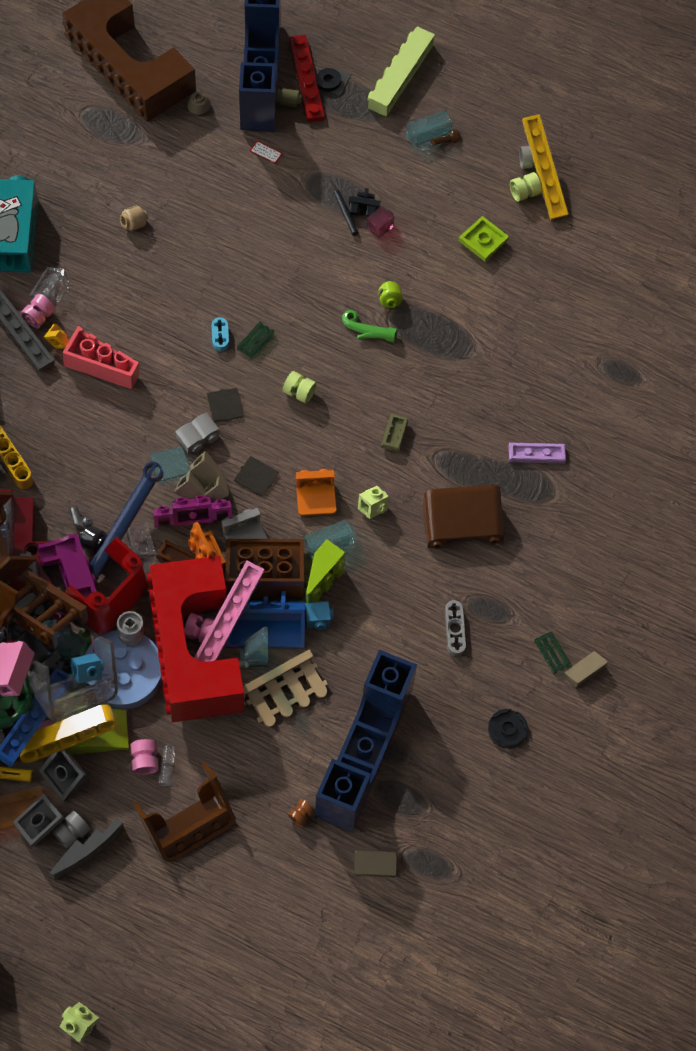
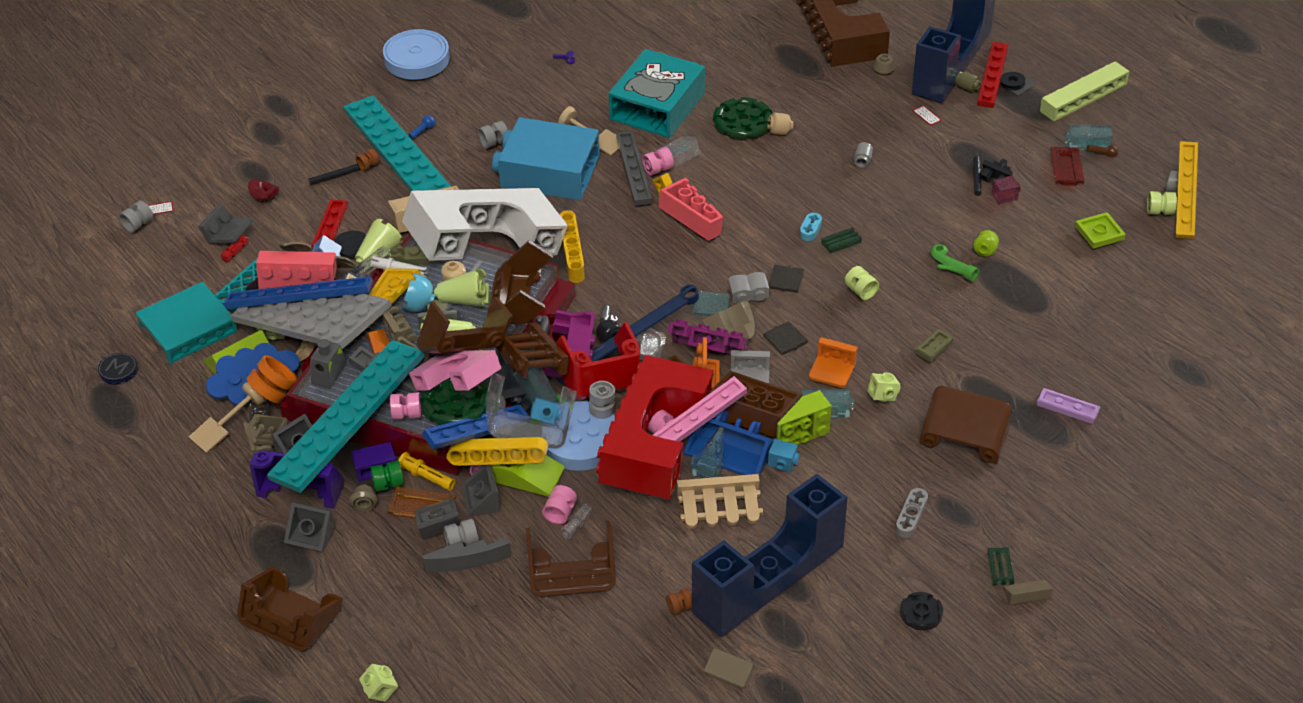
camera: 30 degrees right, 20 degrees down
(92, 213) = (729, 115): none -> dark green plate
(230, 227) = (863, 154): none -> light grey brick
(422, 169) = (1067, 165): none -> clear red piece

